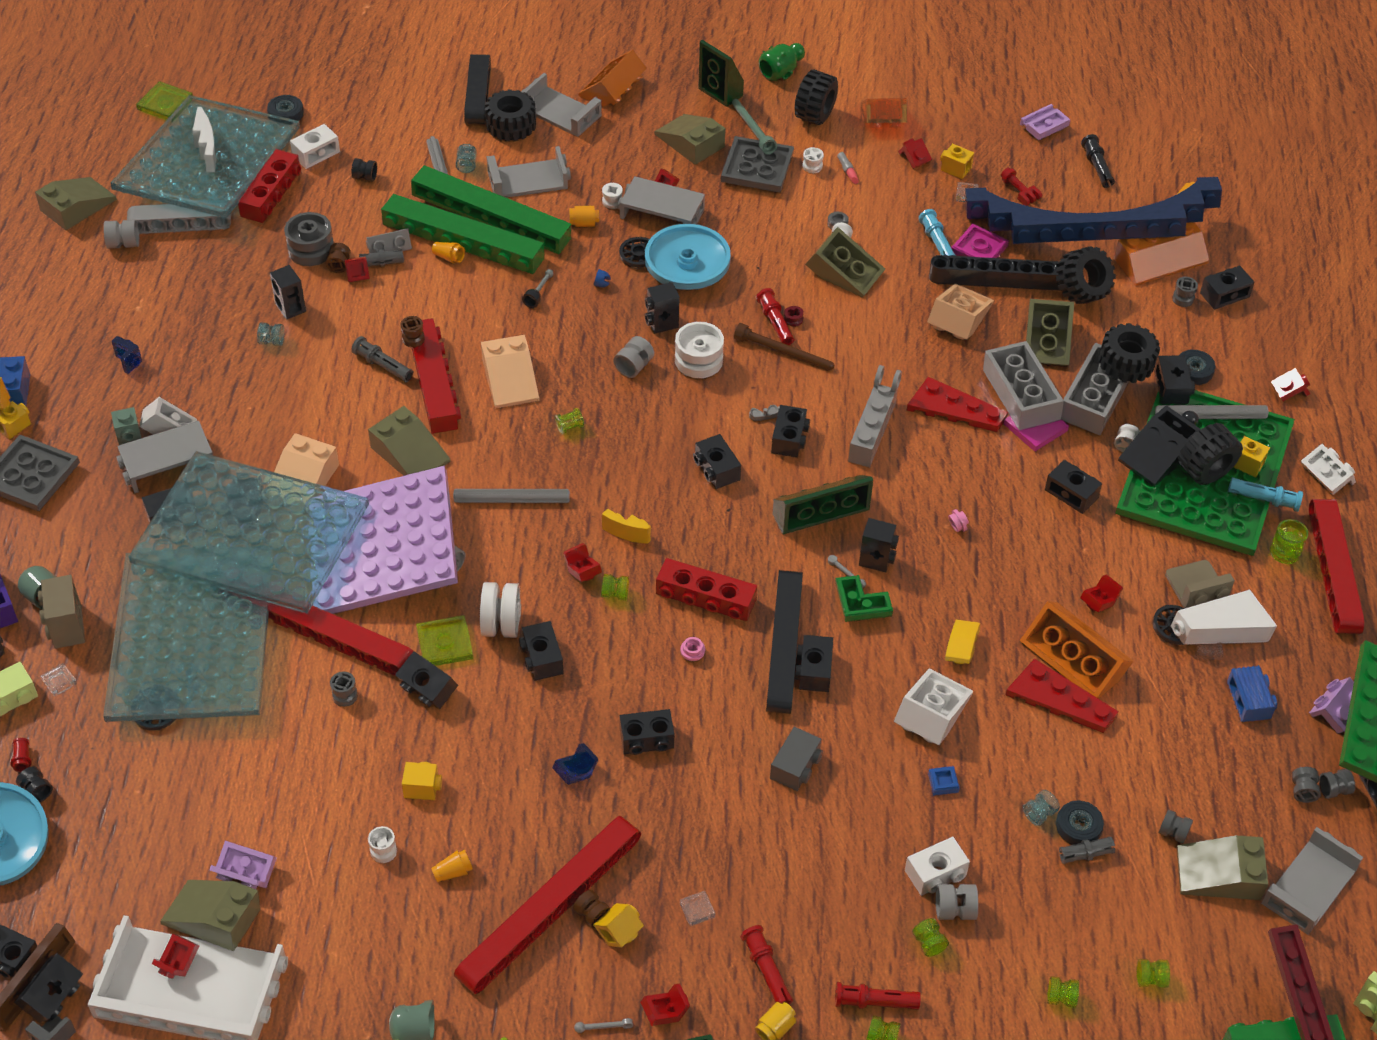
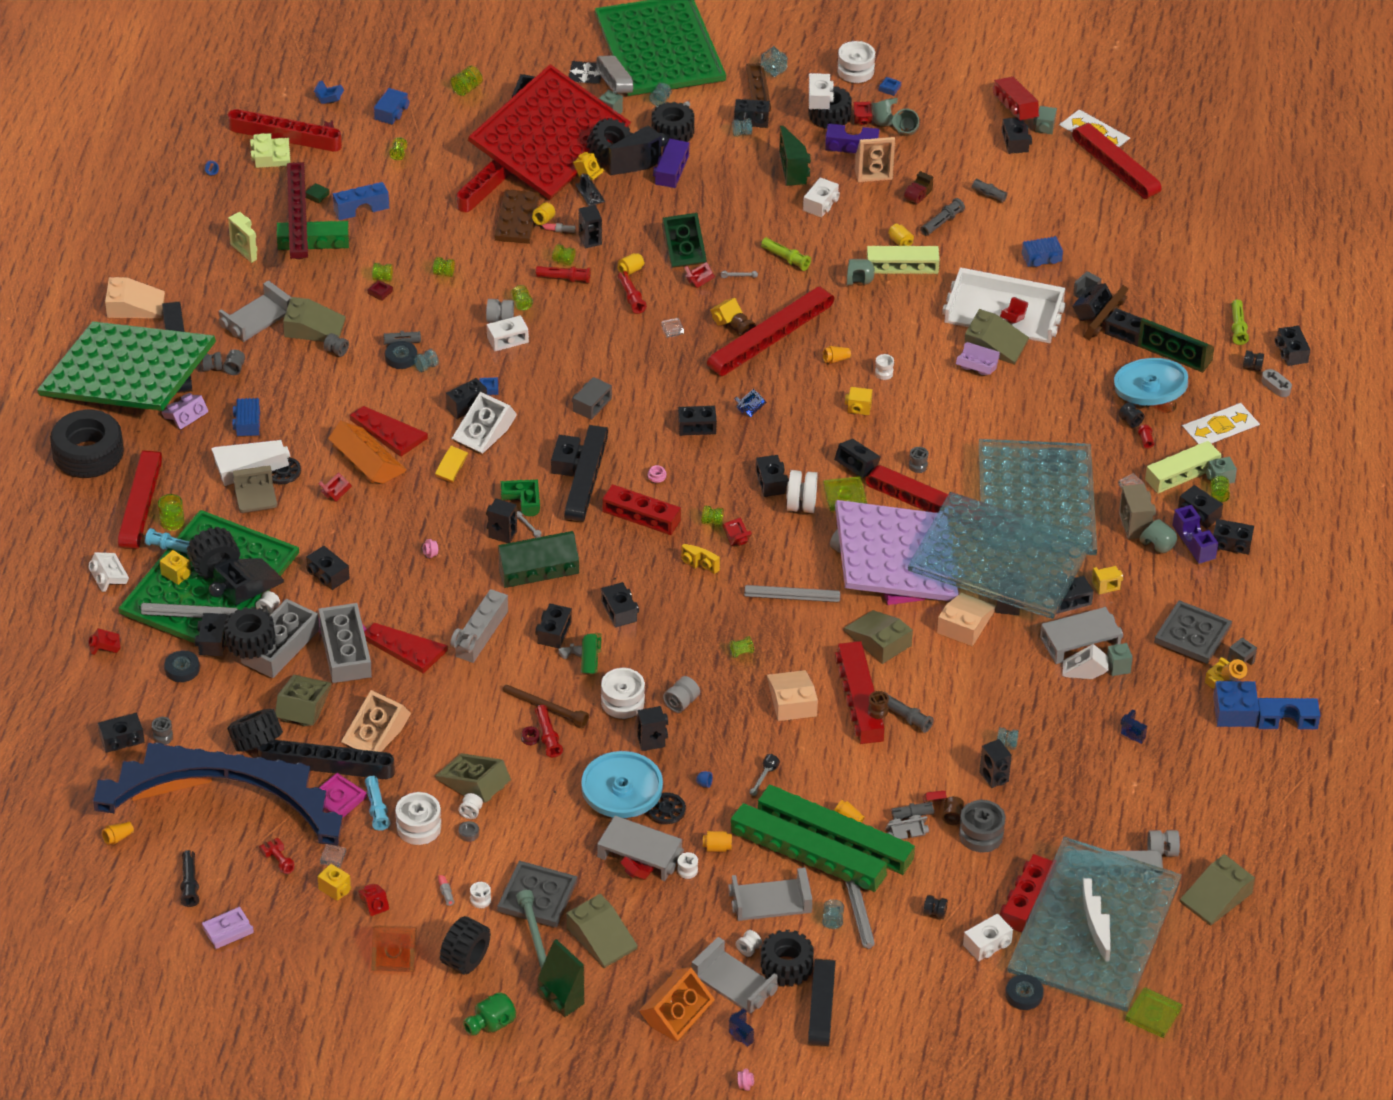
camera: 175 degrees left, 5 degrees down
(119, 530) = (1107, 579): none -> yellow brick
(546, 29) = (745, 1079): none -> bright pink plate
(547, 130) = (749, 943): none -> white wheel
(552, 64) = (740, 1029): none -> clear blue bracket
(742, 397) = (590, 648): none -> green brick
(890, 216) = (418, 818): none -> white wheel
(968, 742) = (461, 398): none -> black brick
(1146, 947) = (380, 290): none -> dark red tile

